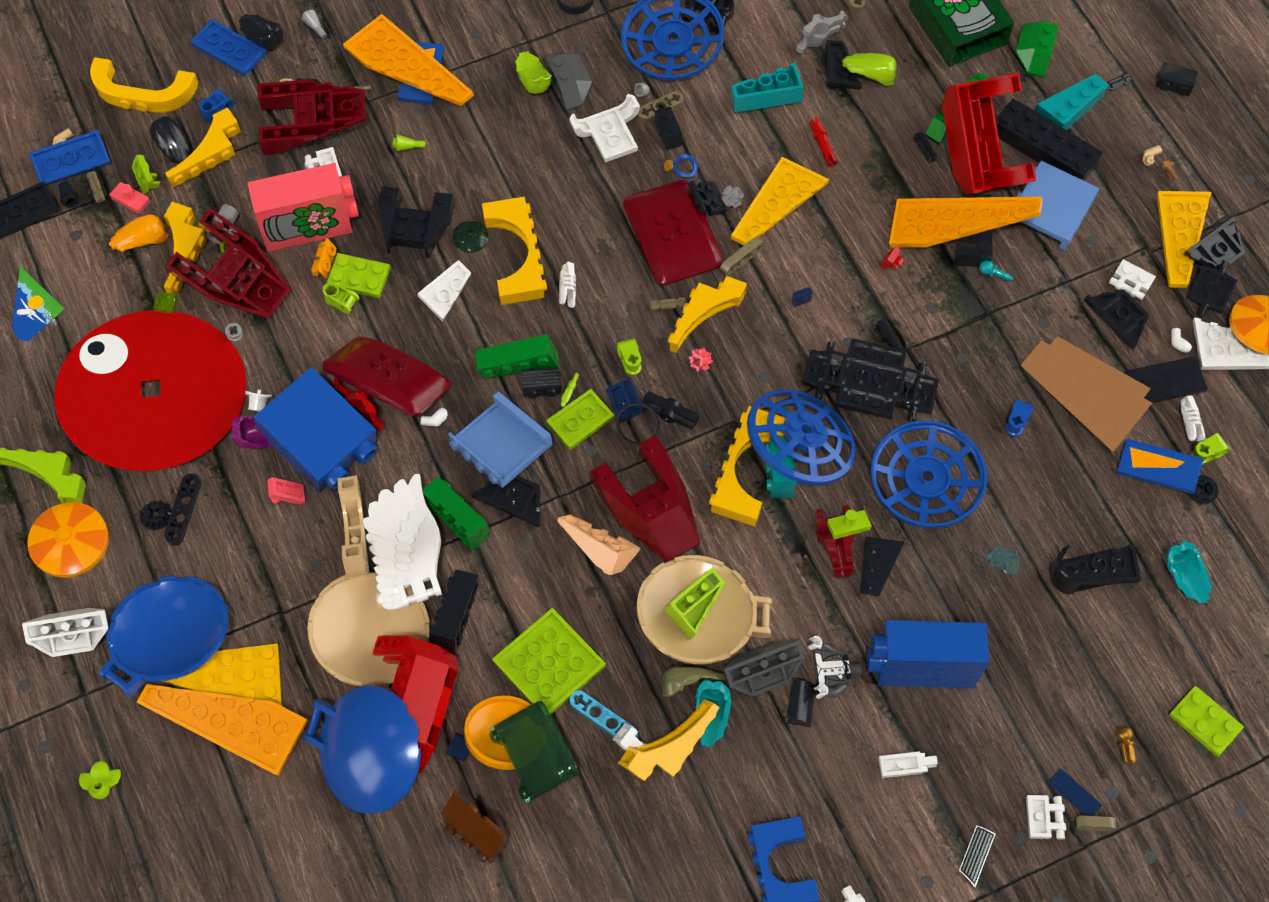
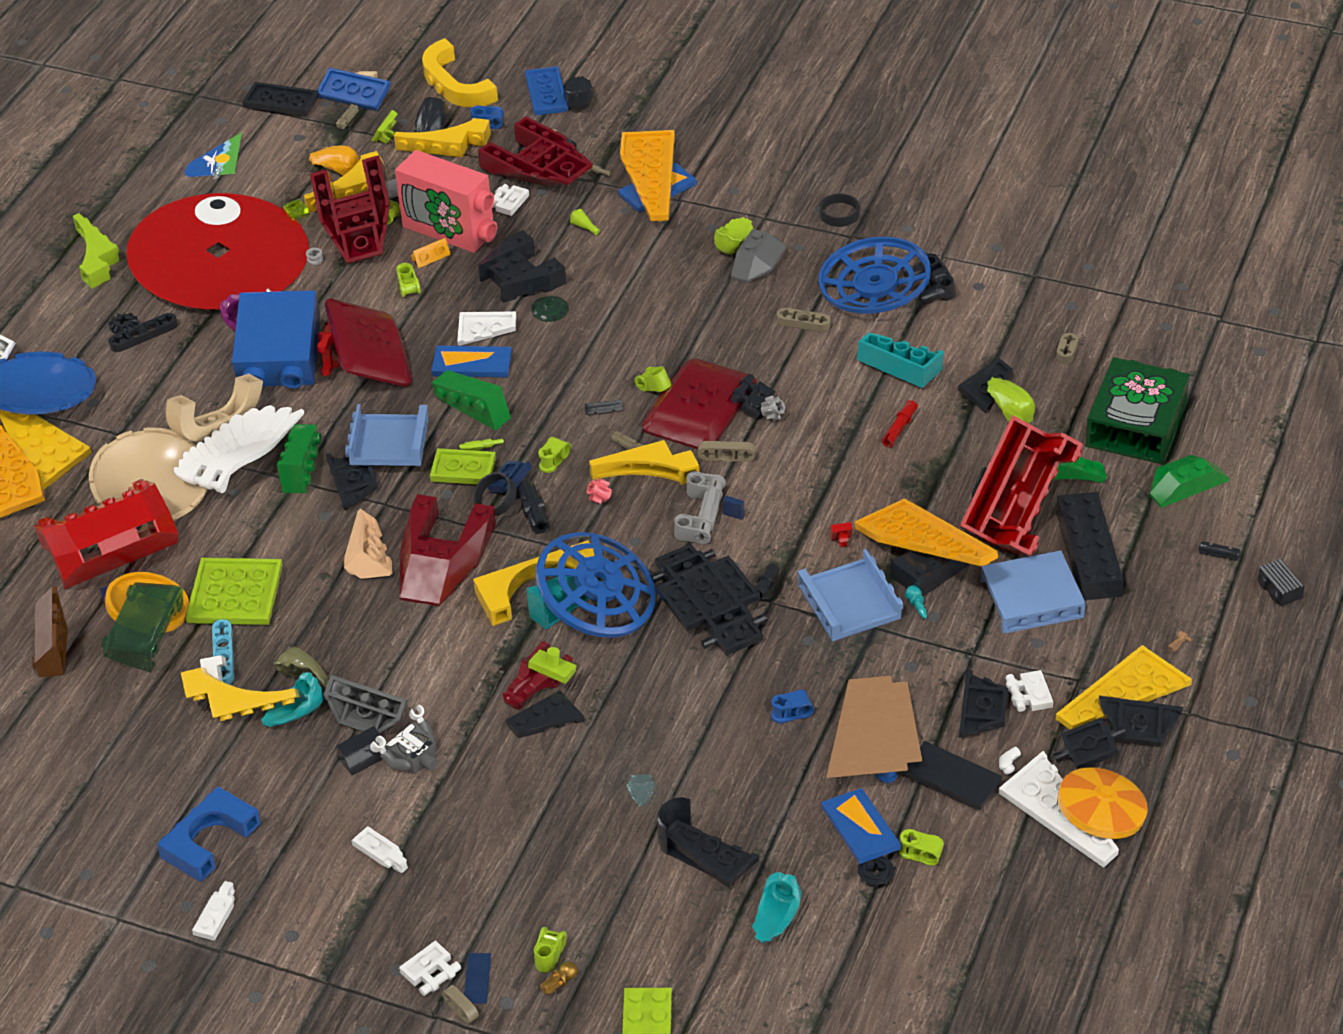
camera: 50 degrees right, 20 degrees down
(67, 195) = (322, 109): black cone -> none
(68, 539) = (57, 300): dish -> none
(130, 197) = (359, 136): coral tile -> none
(286, 491) = (213, 363): coral tile -> none
(310, 19) = (624, 106): light grey cone -> none
(360, 275) = (440, 279): lime plate -> none
(367, 748) = (46, 531): blue dish -> none
(436, 419) = (369, 397): white arm -> none
(454, 613) = (213, 512): black wedge -> none
(472, 327) = (472, 360): none -> blue tile
(527, 281) = (548, 358): yellow arch -> none
(540, 382) = (467, 424): black brick -> none
(567, 284) = (572, 380): white hinge -> none
(609, 129) = (739, 306): white piece -> none
(614, 288) = (603, 407): none -> black axle
(626, 238) = (653, 380): none -> lime piece
(641, 89) = (805, 299): light grey hinge -> none
(668, 128) = (786, 334): black brick -> none
(670, 165) = (757, 358): blue piece -> none
(693, 604) = (374, 624): lime wedge -> none
(725, 627) = (372, 634): tan dish -> none
(780, 195) = (820, 433): yellow wing -> none
(798, 332) = (692, 527): none -> light grey piece
(819, 29) = (997, 343): light grey animal -> none
(929, 465) = (661, 678): blue dish -> none
(929, 654) = (481, 779): blue brick -> none
(952, 302) = (851, 597): none -> medium blue panel
(976, 854) = (350, 951): sticker -> none
(1072, 103) = (1153, 535): teal wedge -> none
(1094, 726) = (548, 949): none -> lime piece
(1148, 155) = (1175, 619): tan arm -> none
(1192, 419) = (937, 816): white hinge -> none

